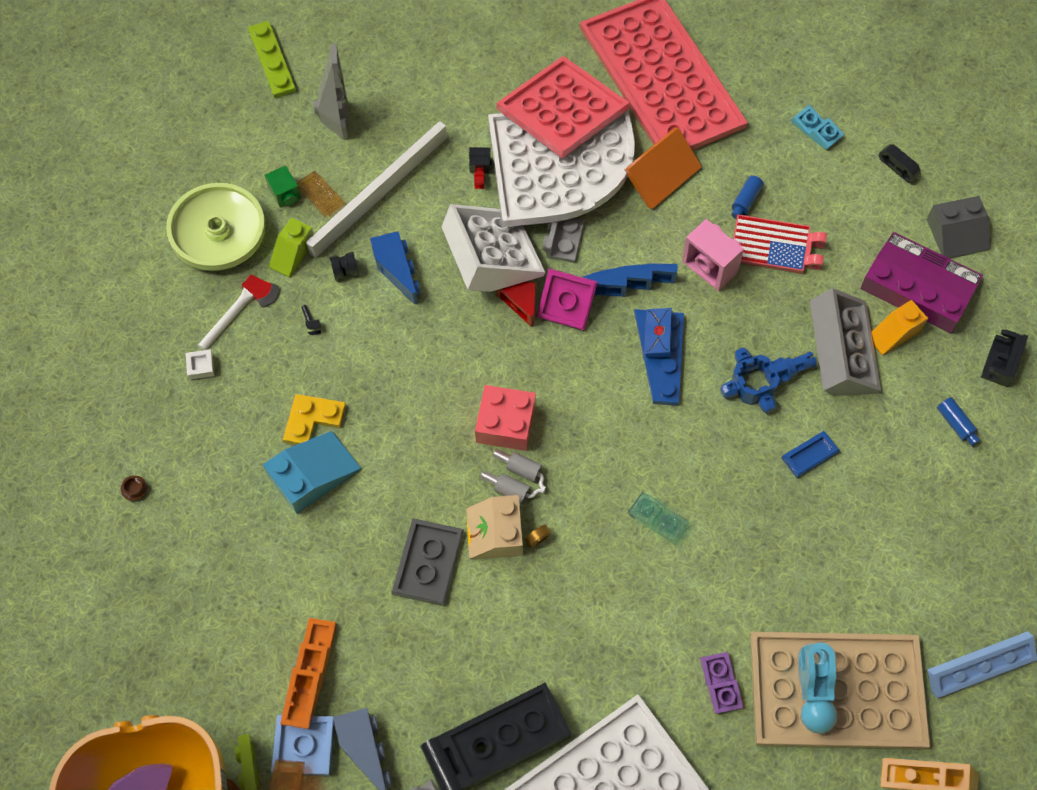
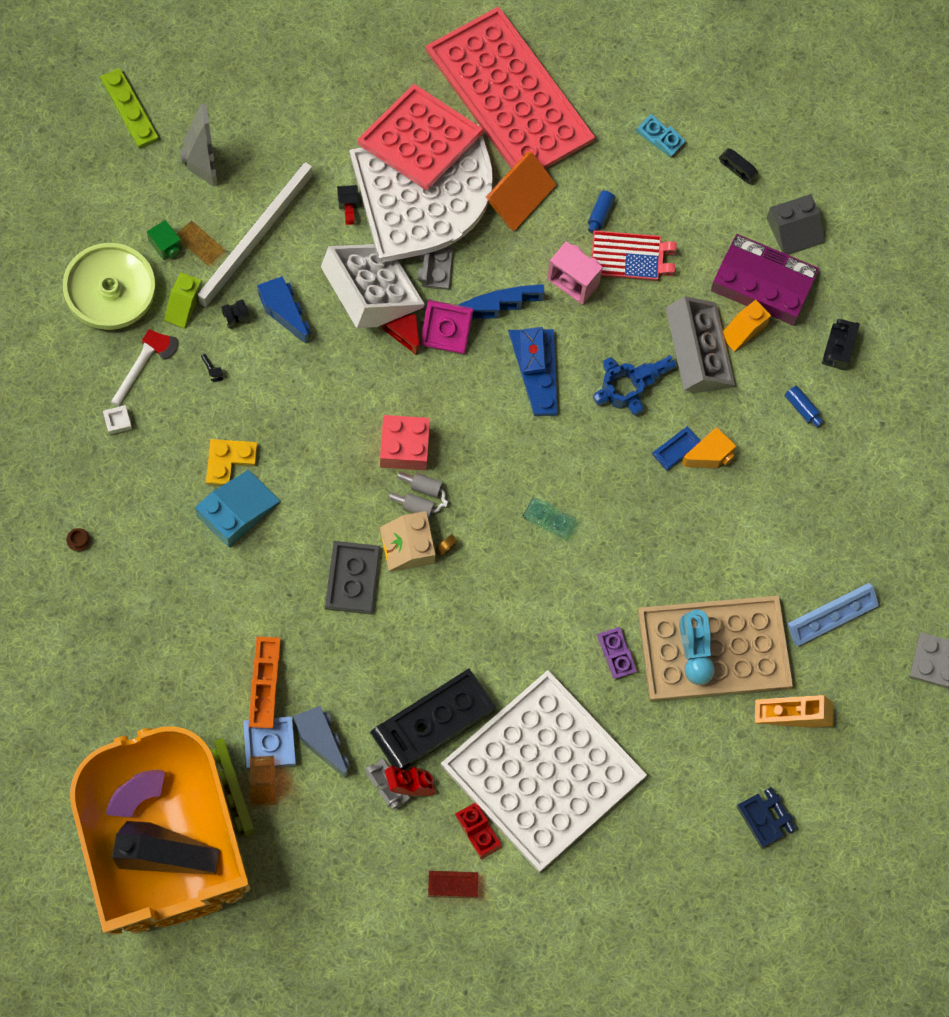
camera: 15 degrees left, 5 degrees up
(849, 461) = (711, 451): none -> light orange slope

